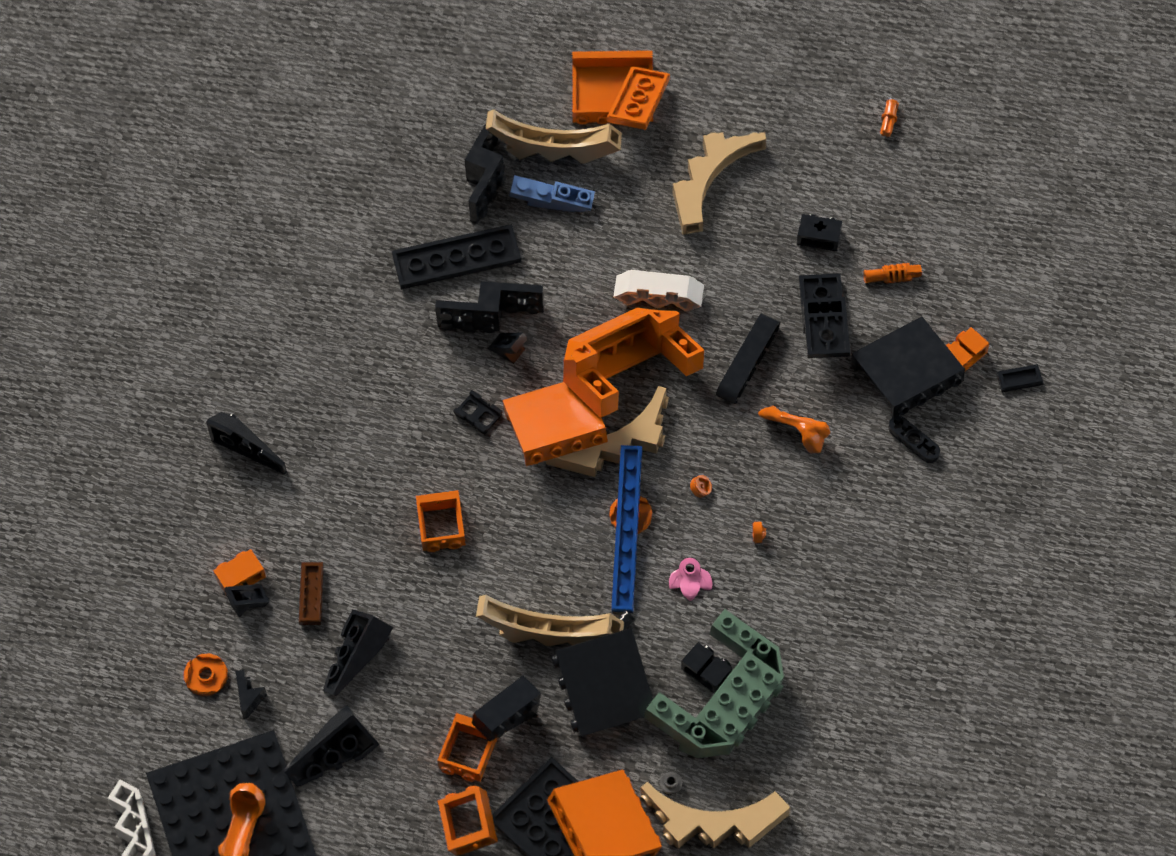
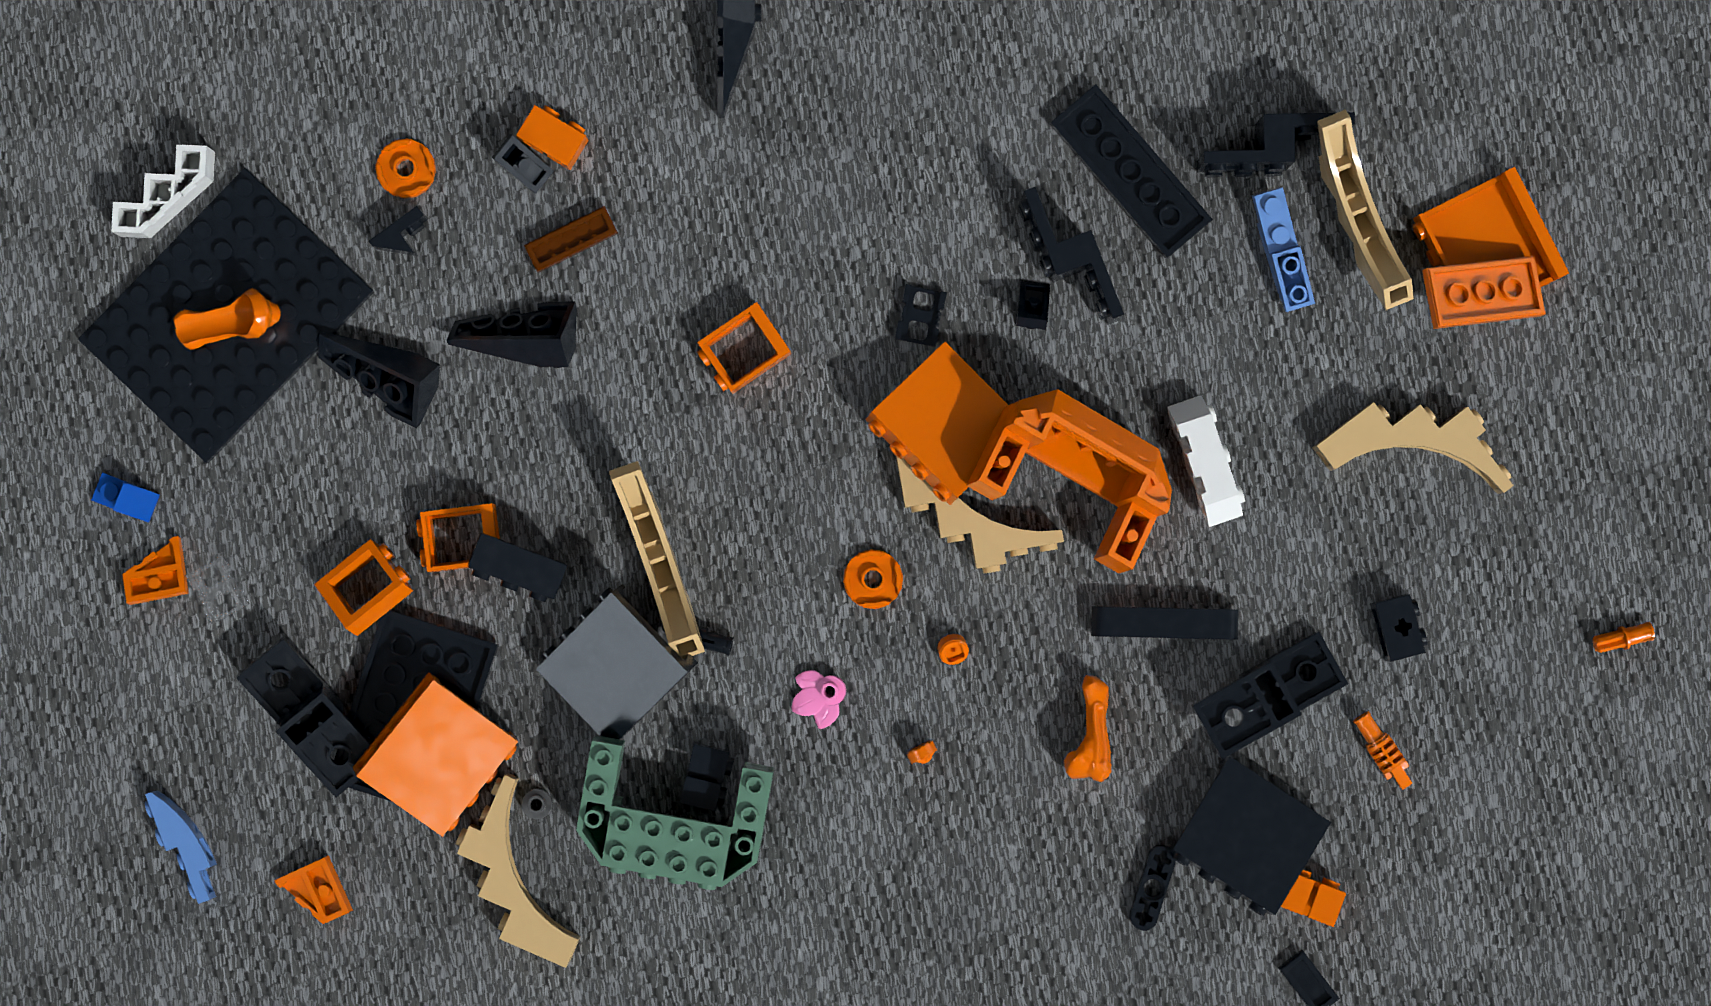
camera: 60 degrees right, 25 degrees up
(626, 529) = (845, 586): blue tile -> none

